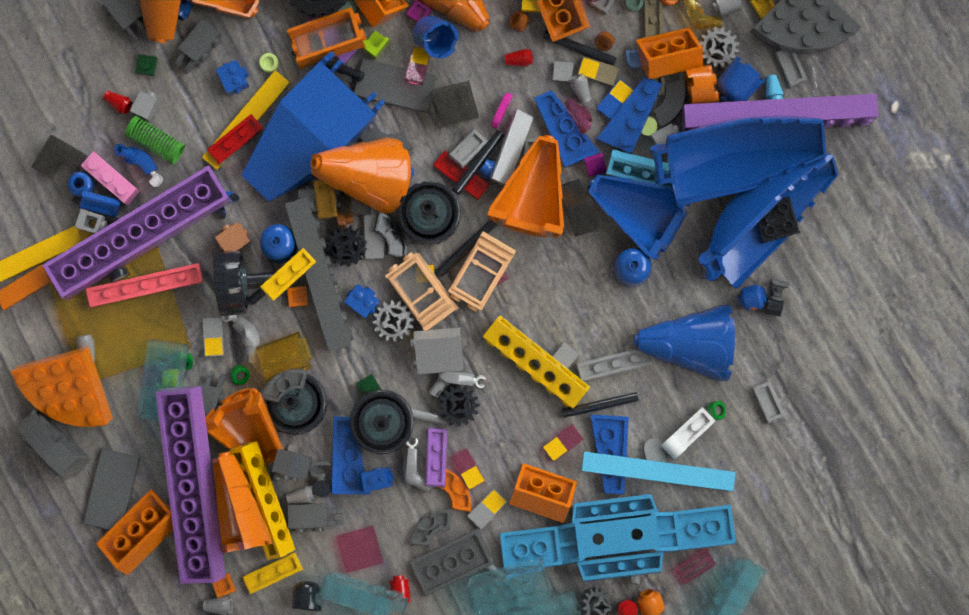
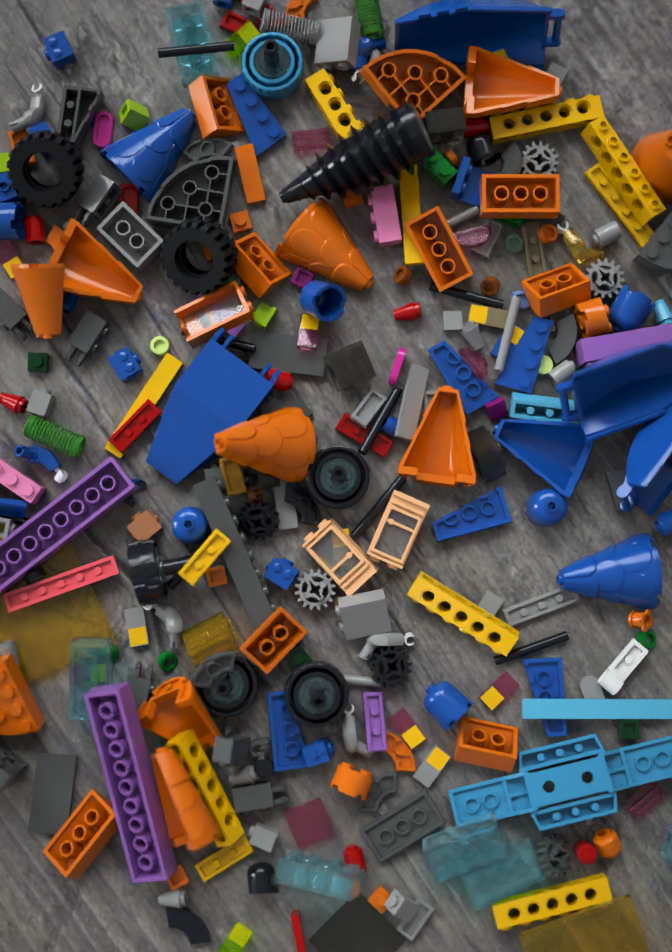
camera: 15 degrees left, 0 degrees up
(312, 555) = (262, 836): none -> light grey brick
(346, 364) = (273, 639): none -> orange slope
(387, 112) = (284, 380): none -> red brick
(407, 512) = (352, 781): none -> orange brick
(508, 448) = (446, 703): none -> blue cylinder
(560, 268) = (479, 515): none -> blue wing
(615, 91) = (507, 333): none -> light grey piece
(686, 494) = (628, 728): none -> dark green plate
(711, 389) = (640, 619): none -> orange brick

